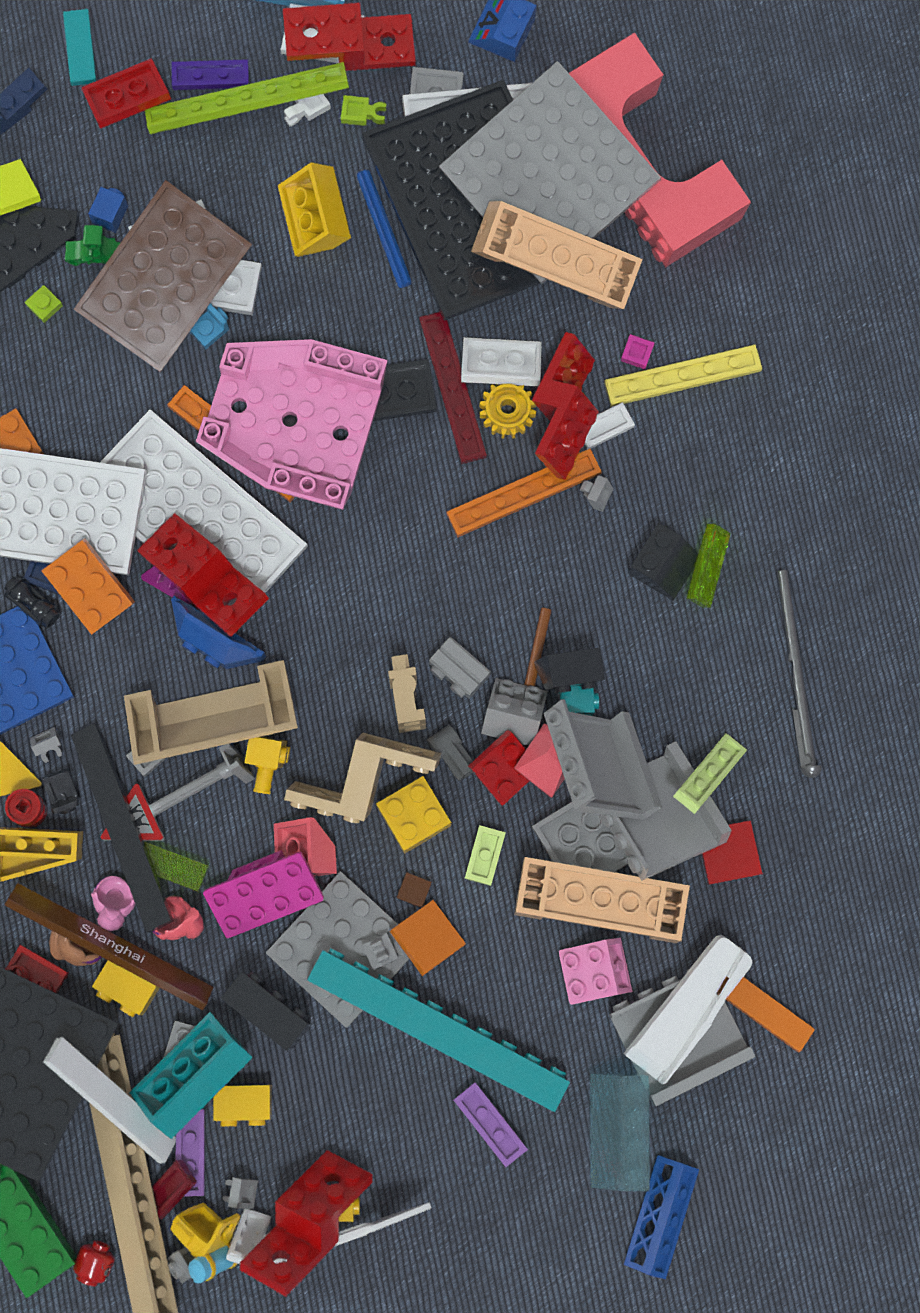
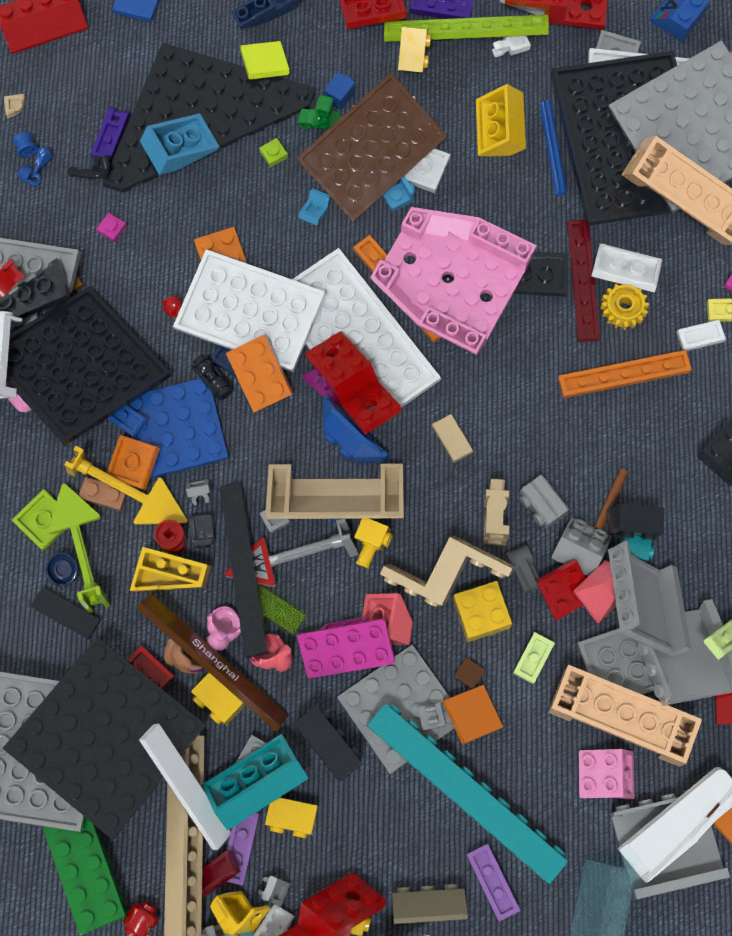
camera: 20 degrees right, 5 degrees down
(110, 364) = (315, 207): none -> dark azure bracket
(187, 140) = (413, 49): none -> yellow brick
(336, 614) = (452, 438): none -> tan tile
(357, 111) = (551, 54): lime plate -> none
(422, 1168) = (429, 904): none -> dark tan slope
(565, 406) = (672, 311): red bracket -> none
(597, 492) = (685, 386): light grey tile -> none

